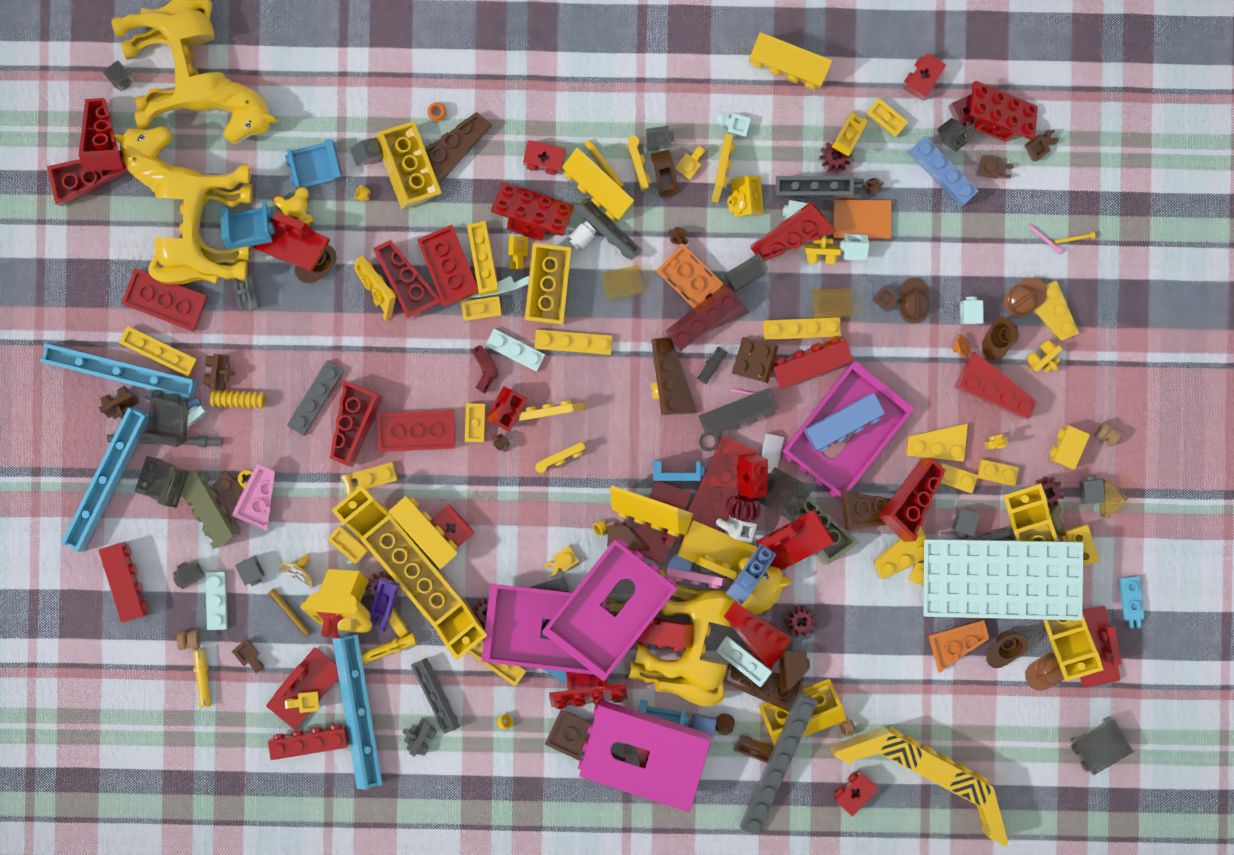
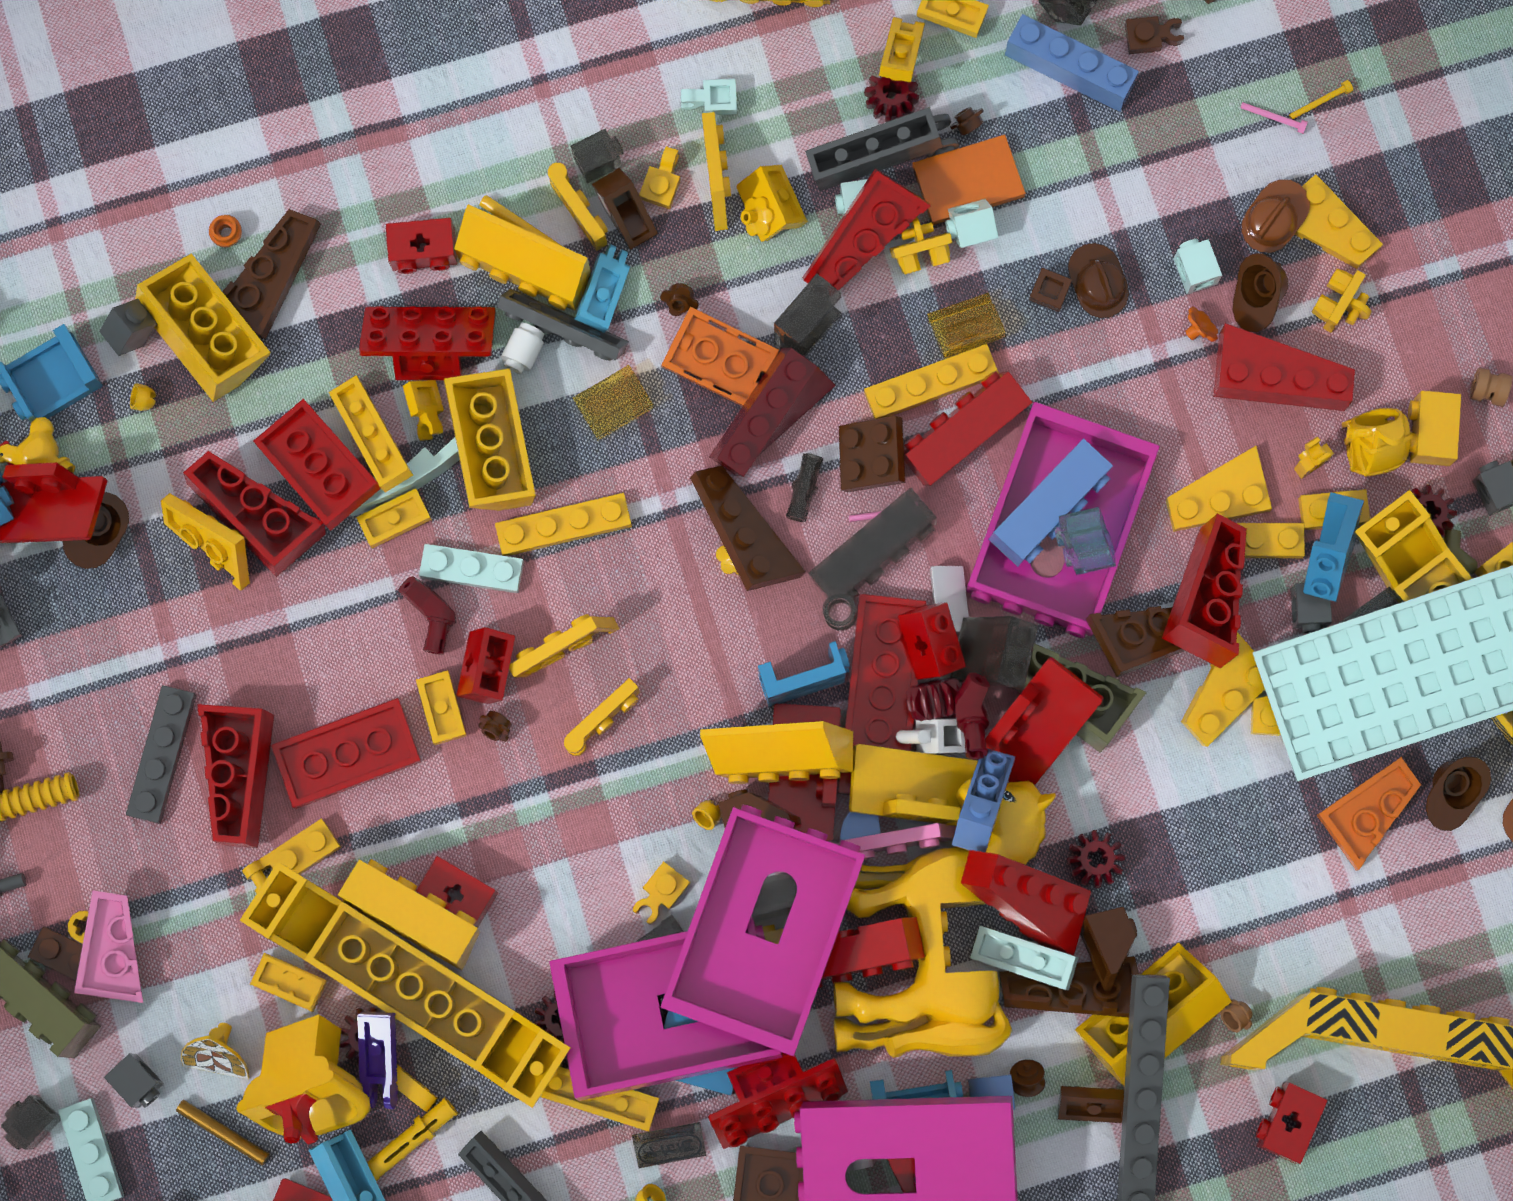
camera: 15 degrees left, 10 degrees down
(523, 696) = (669, 1145): none -> clear smoke tile
(638, 216) = (603, 289): none -> medium azure hinge
(760, 526) = (972, 714): none -> dark red arm
(855, 450) = (1085, 541): none -> clear light blue brick
(994, 490) = (1333, 552): none -> dark azure panel
(1031, 447) = (1376, 443): none -> yellow piece

